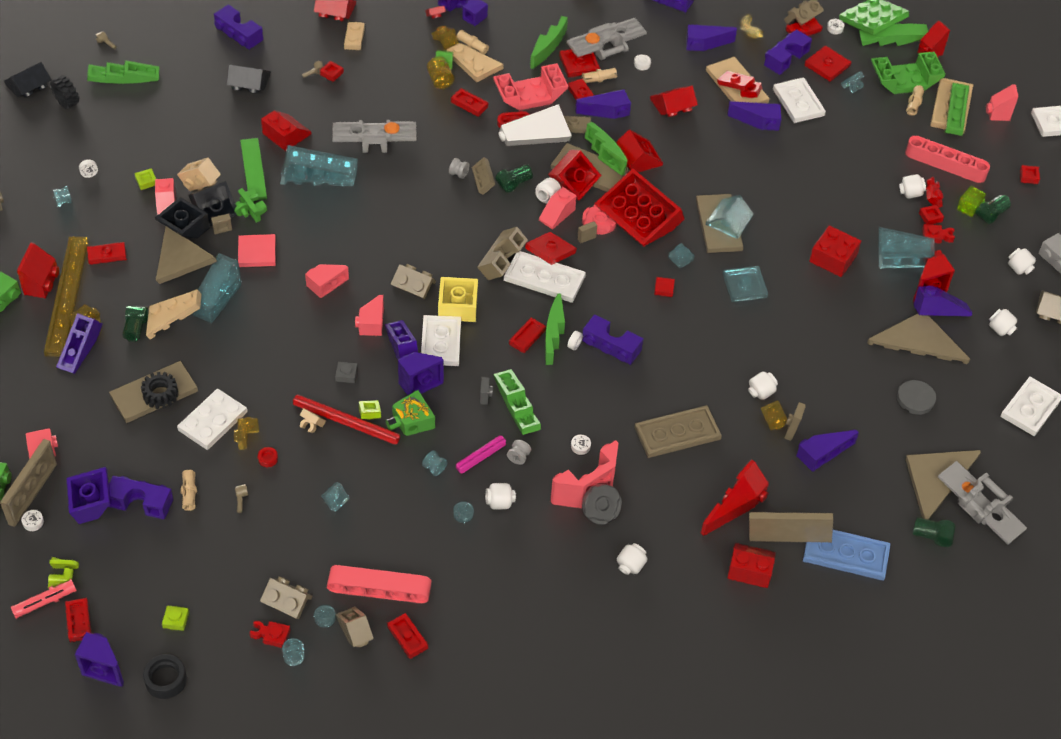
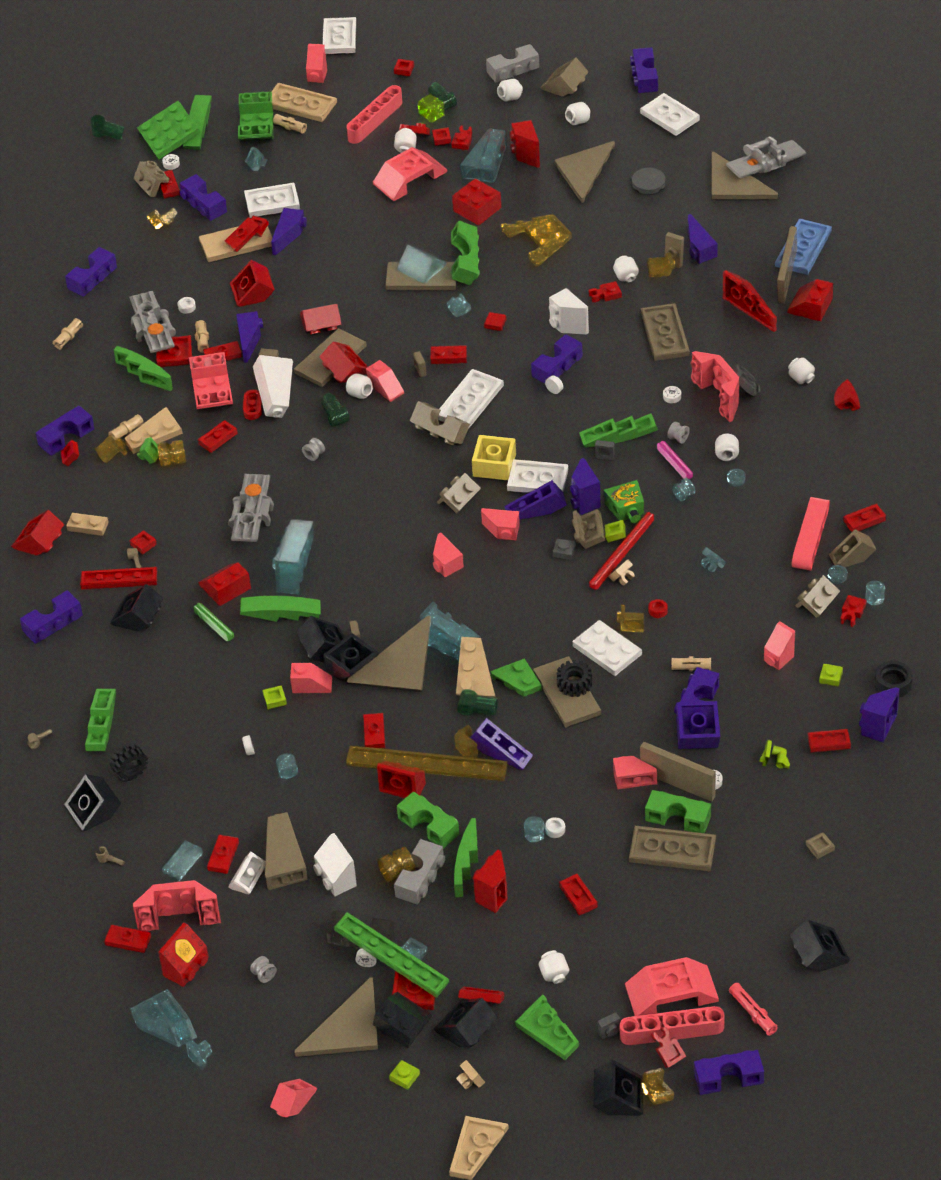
camera: 75 degrees left, 5 degrees down
(19, 610) = (800, 759): coral pin -> none
(172, 351) = (518, 677): none -> bright green wing
(199, 174) = (289, 643): tan brick -> none
(202, 563) = (780, 646): none -> coral slope
(238, 130) = (215, 623): none -> bright green axle
(241, 491) = (698, 628): dark tan hand -> none
(247, 205) = (335, 611): bright green hips -> none
(257, 250) = (393, 611): coral tile -> none
(291, 64) = (118, 578): none -> red tile
(370, 385) = (588, 528): none -> dark tan bracket
(483, 176) = (328, 431): dark tan plate -> none
(527, 335) = (538, 419): red tile -> none
(550, 248) = (436, 390): red plate -> none
(555, 326) = (542, 399): bright green slope -> none
(600, 608) = (846, 397): none -> red brick
(604, 224) = (402, 361): coral tile -> none
(606, 147) = (315, 335): bright green slope -> none
(609, 255) = (448, 354): none -> red plate
(640, 208) = (398, 321): red slope -> none
(677, 336) = (568, 313): none -> white slope
(708, 37) = (165, 256): dark purple slope -> none
(728, 376) = (607, 291): none -> red plate
(731, 251) = (466, 265): none -> bright green arch
(745, 283) = (500, 268): clear light blue plate -> none
(804, 315) = (545, 231): none -> clear yellow wing
(827, 63) = (222, 174): red plate -> none
(868, 190) = (405, 168): none -> coral slope
(935, 39) = (220, 93): red slope -> none
(937, 302) = (552, 147): dark purple slope -> none
(941, 532) = (791, 187): clear green piece -> none
(957, 109) = (311, 96): bright green tile -> none

